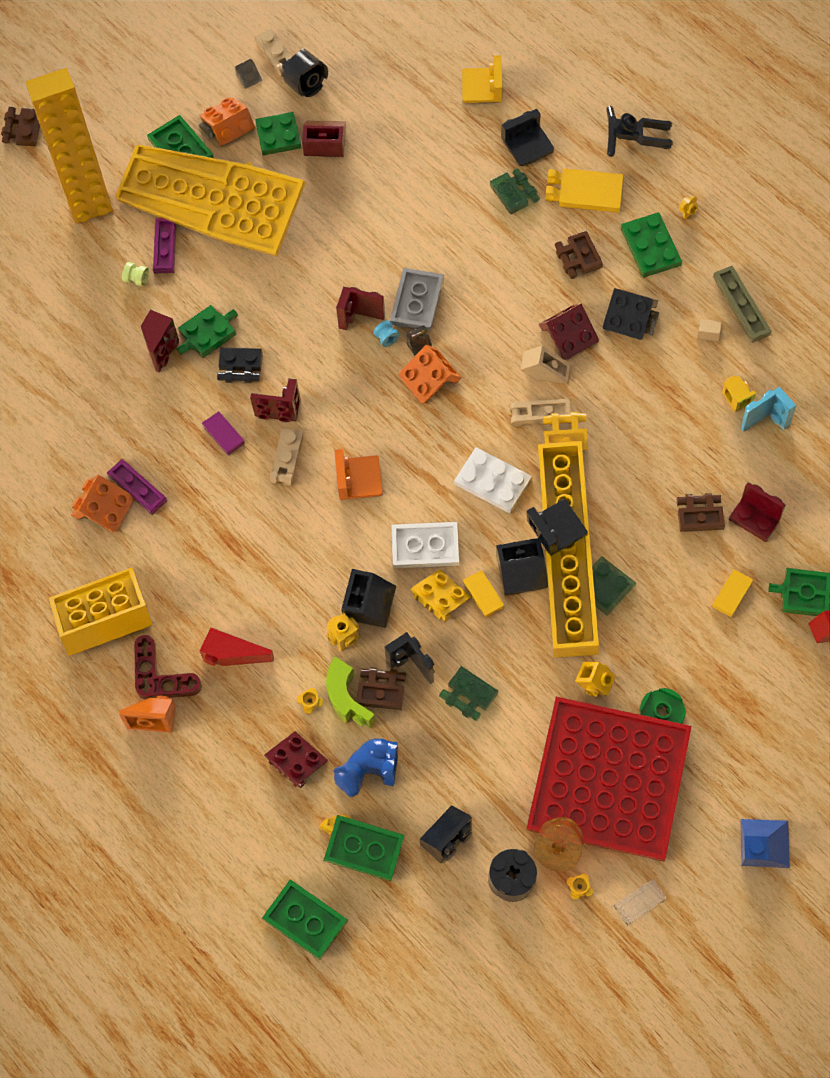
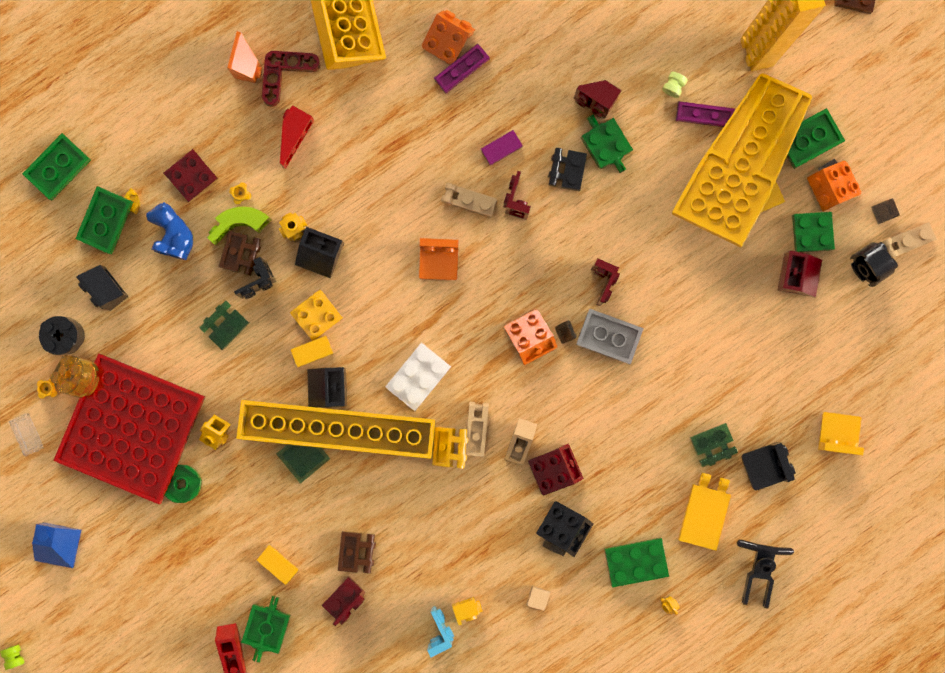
camera: 90 degrees right, 20 degrees up
(386, 333) = (577, 303): medium azure wheel -> none
(425, 545) = (363, 308): white plate -> none
(556, 526) = (348, 421): black bracket -> none
(584, 252) = (634, 498): reddish brown plate -> none
(742, 304) = (558, 633): olive plate -> none

